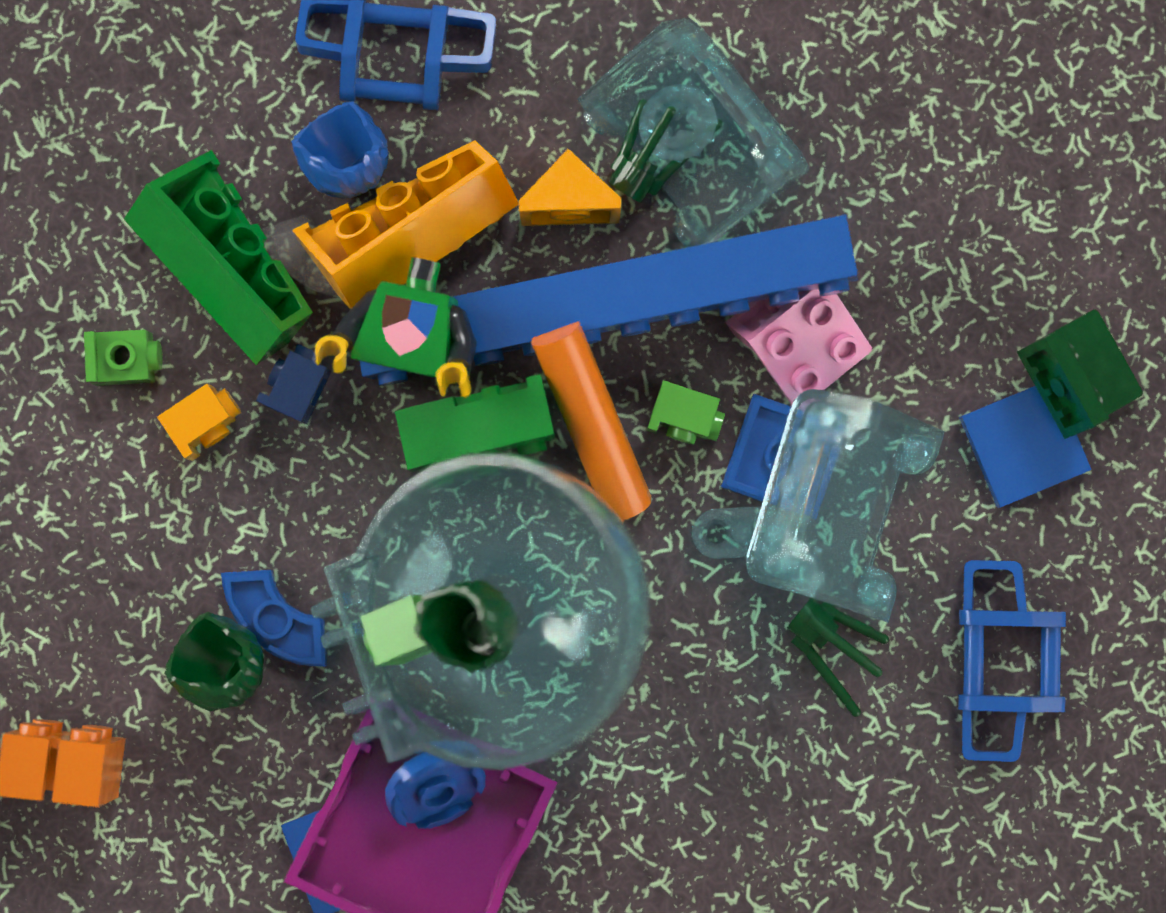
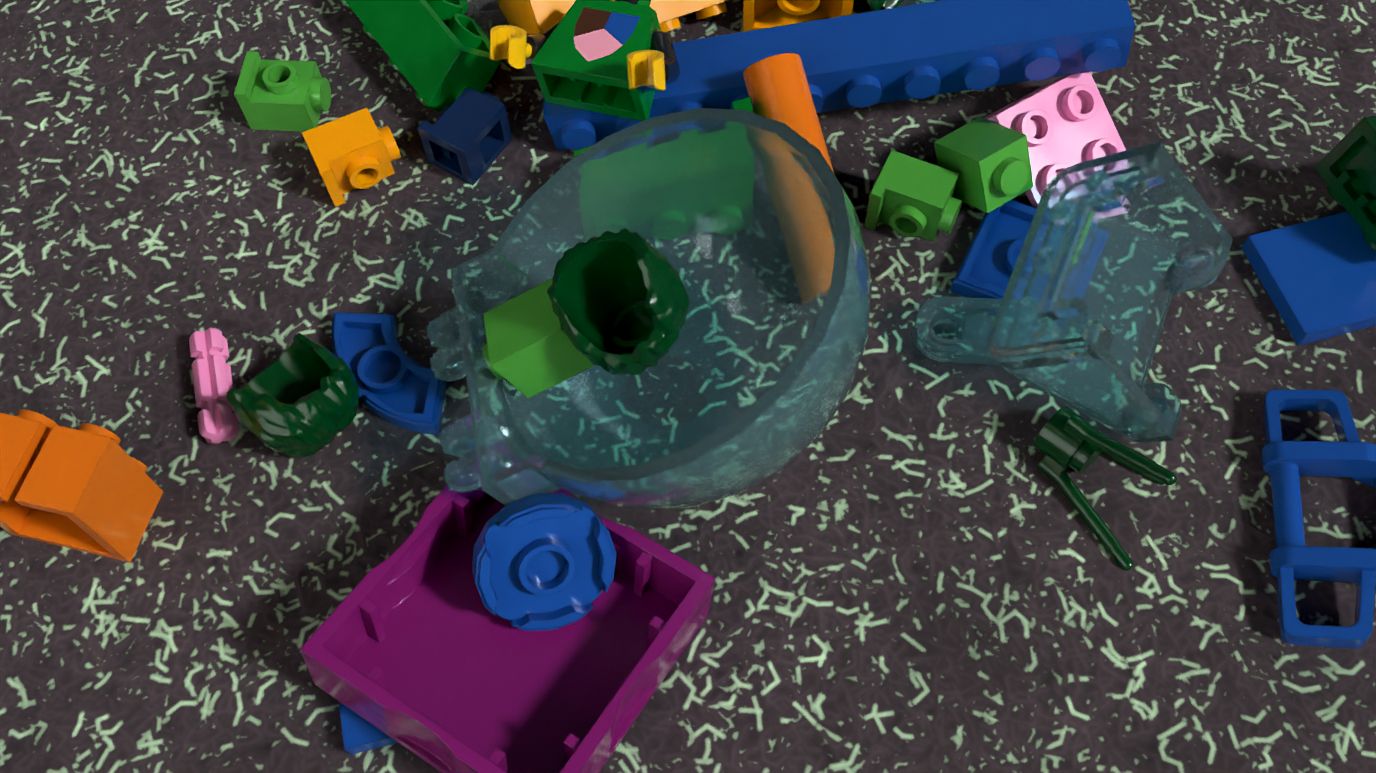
camera: 10 degrees right, 25 degrees down
(140, 648) = (211, 383): none -> bright pink axle
(742, 377) = (989, 161): none -> bright green brick

